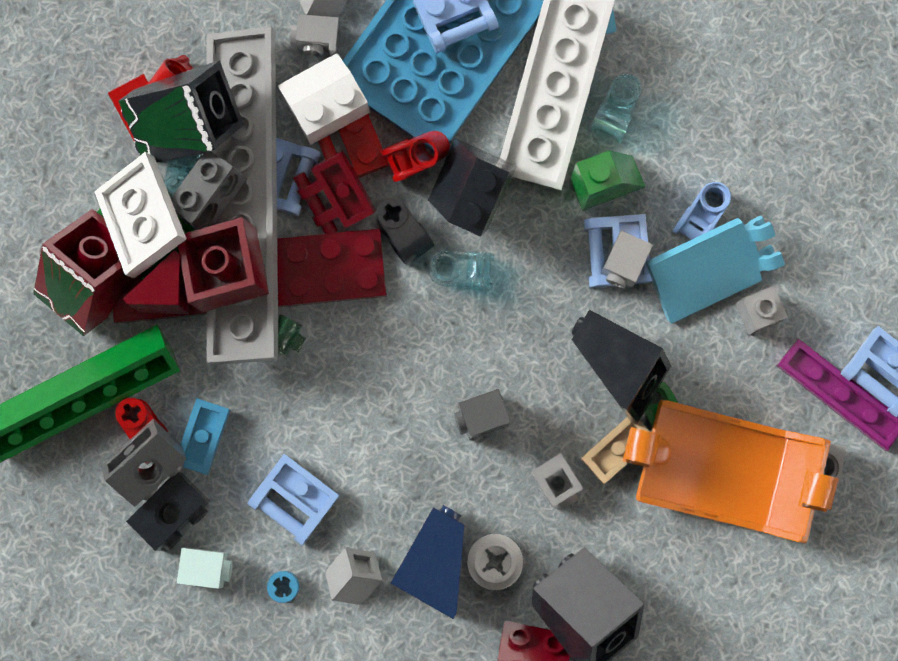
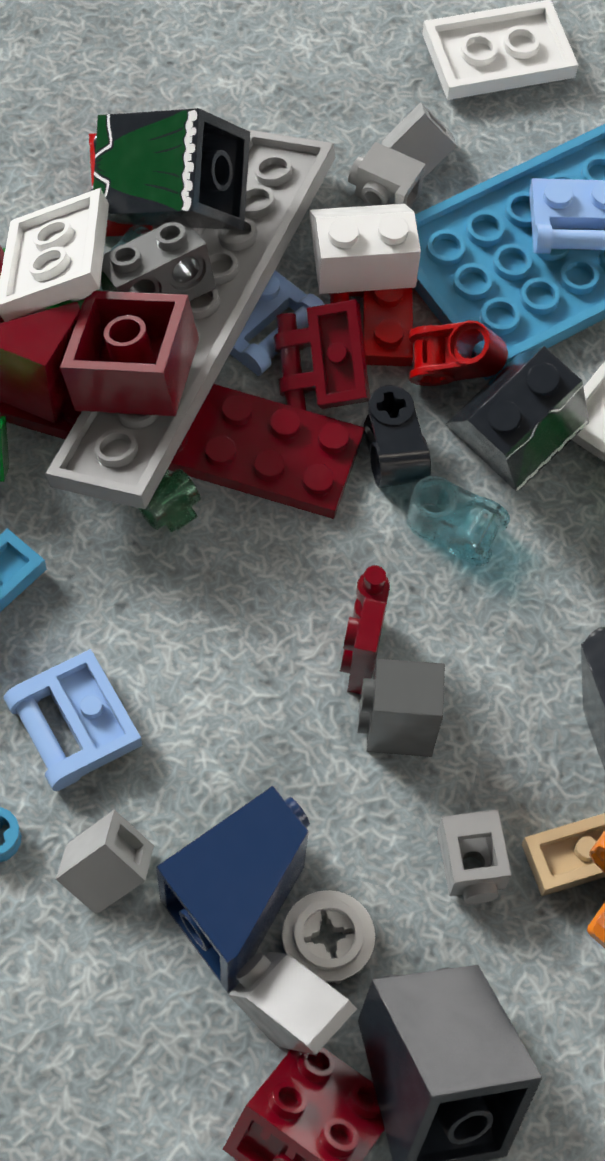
camera: 20 degrees right, 20 degrees down
(442, 383) = (365, 627): none -> dark red plate
(493, 616) = (290, 1002): none -> light grey slope

